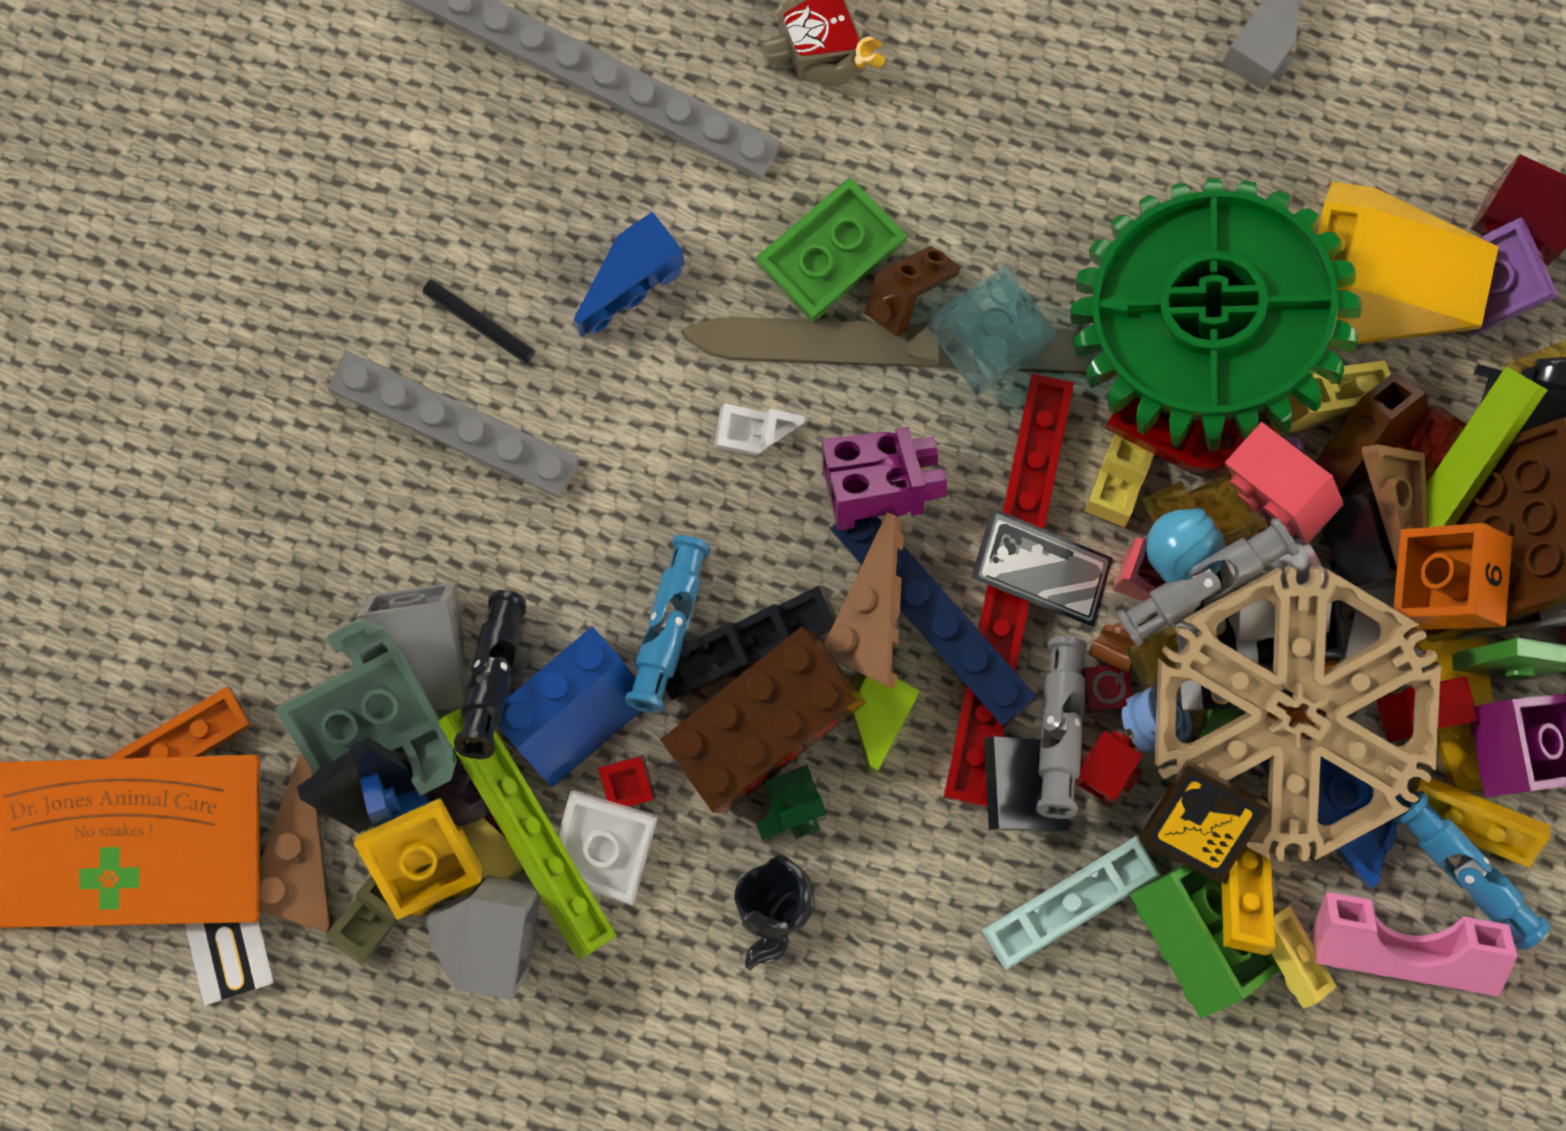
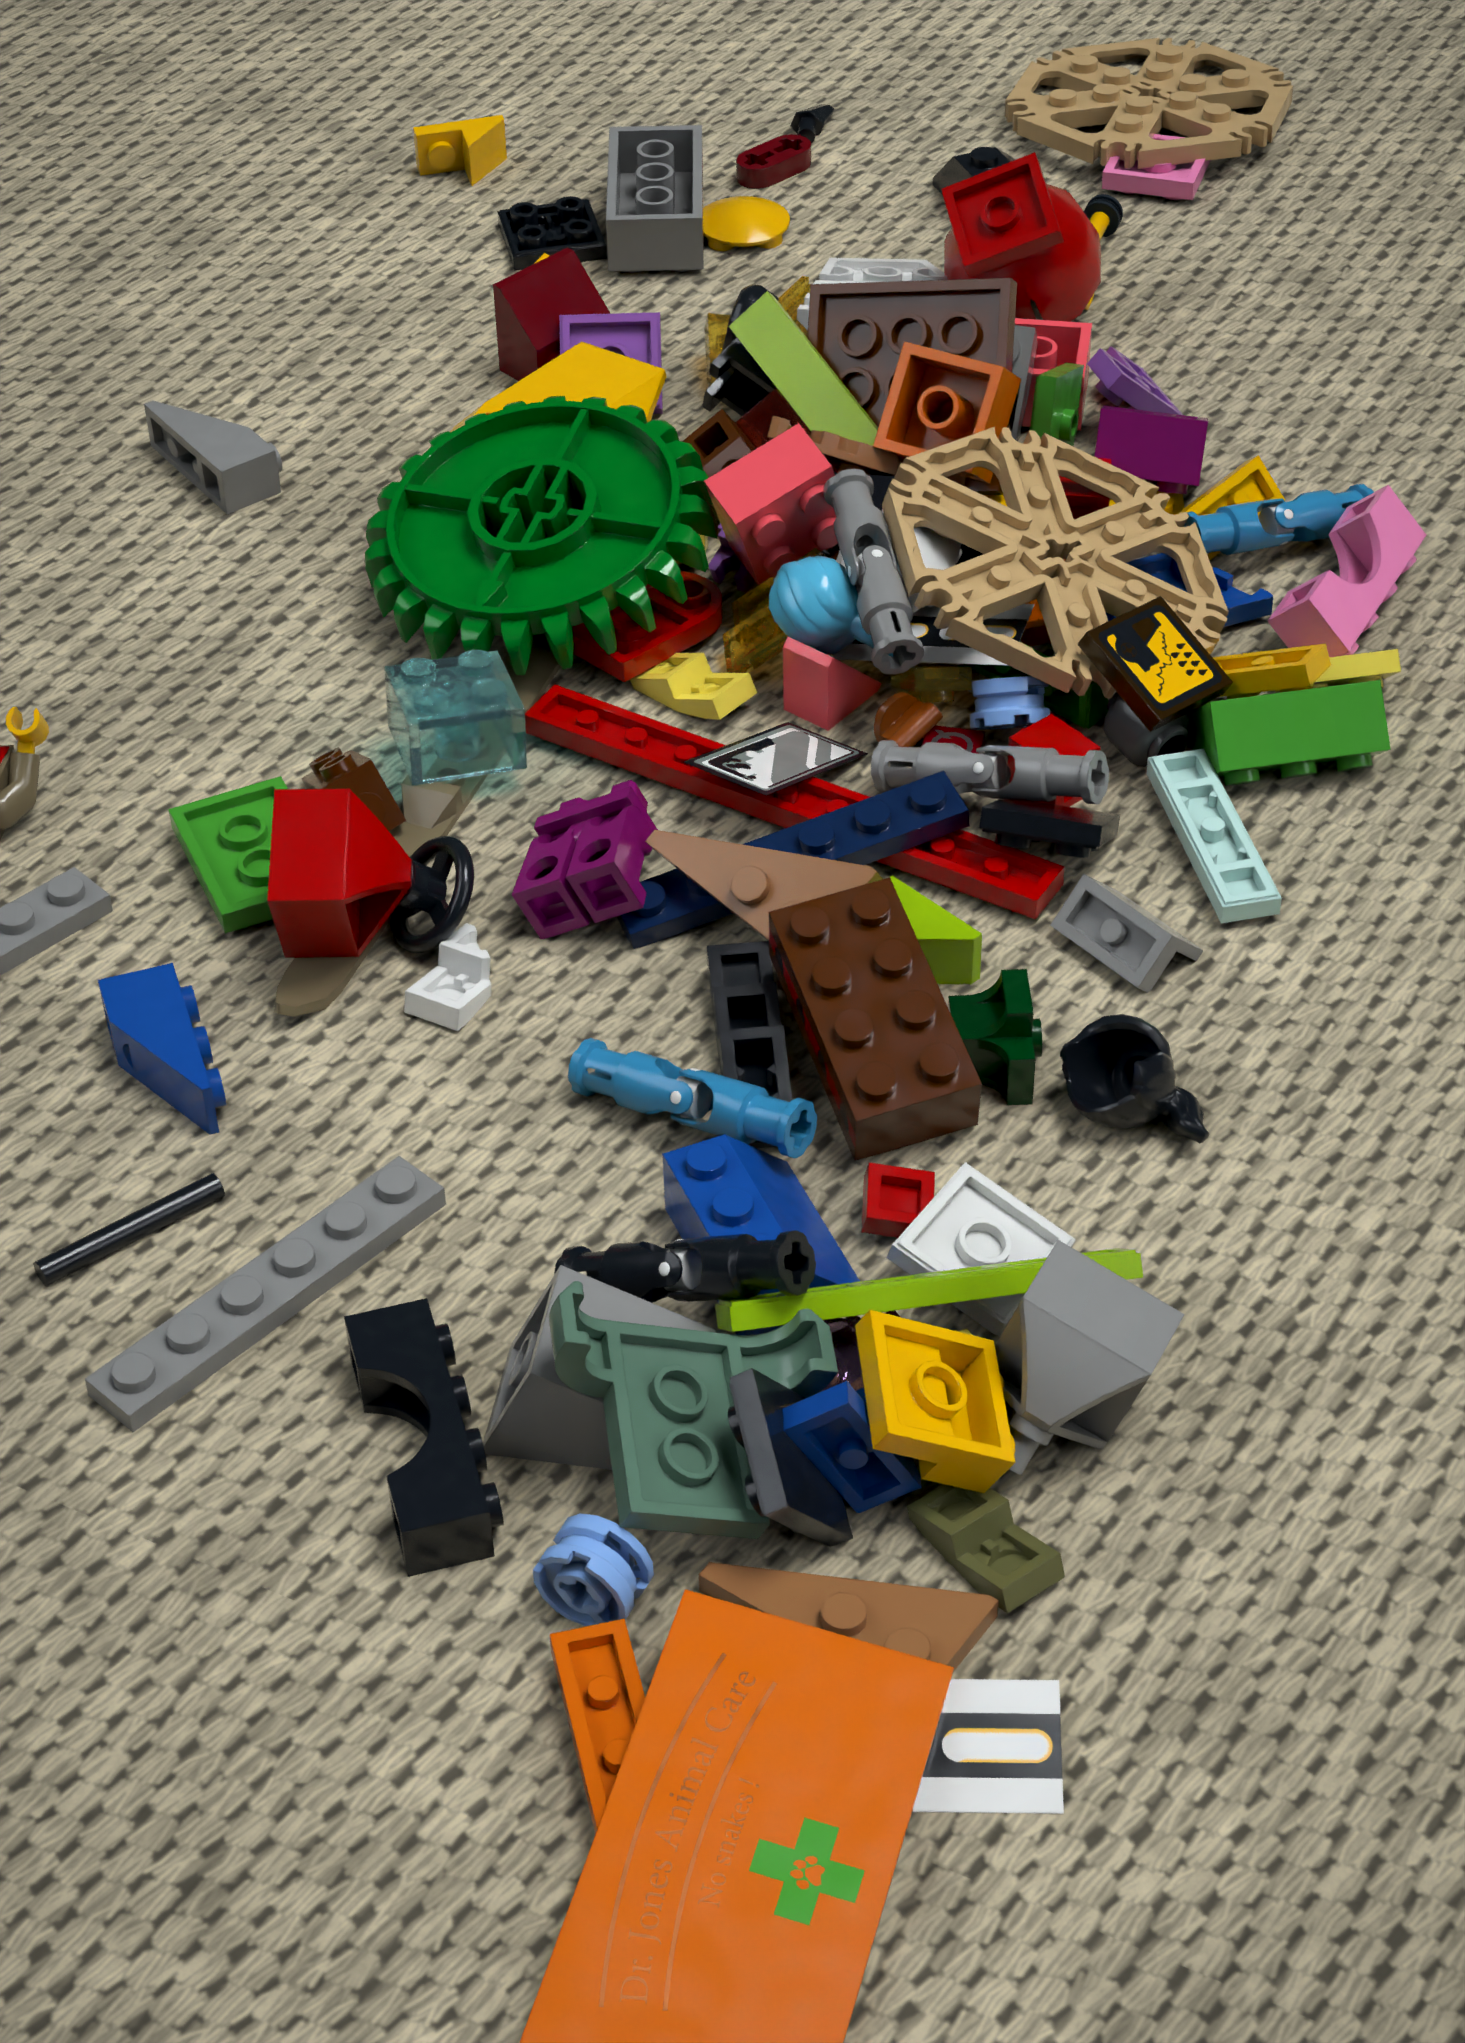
camera: 70 degrees left, 35 degrees down
(269, 690) = (593, 1570): none -> light blue wheel
(307, 591) = (437, 1496): none -> black arch
(784, 321) = (344, 874): none -> red piece
(942, 866) = (1120, 933): none -> light grey panel

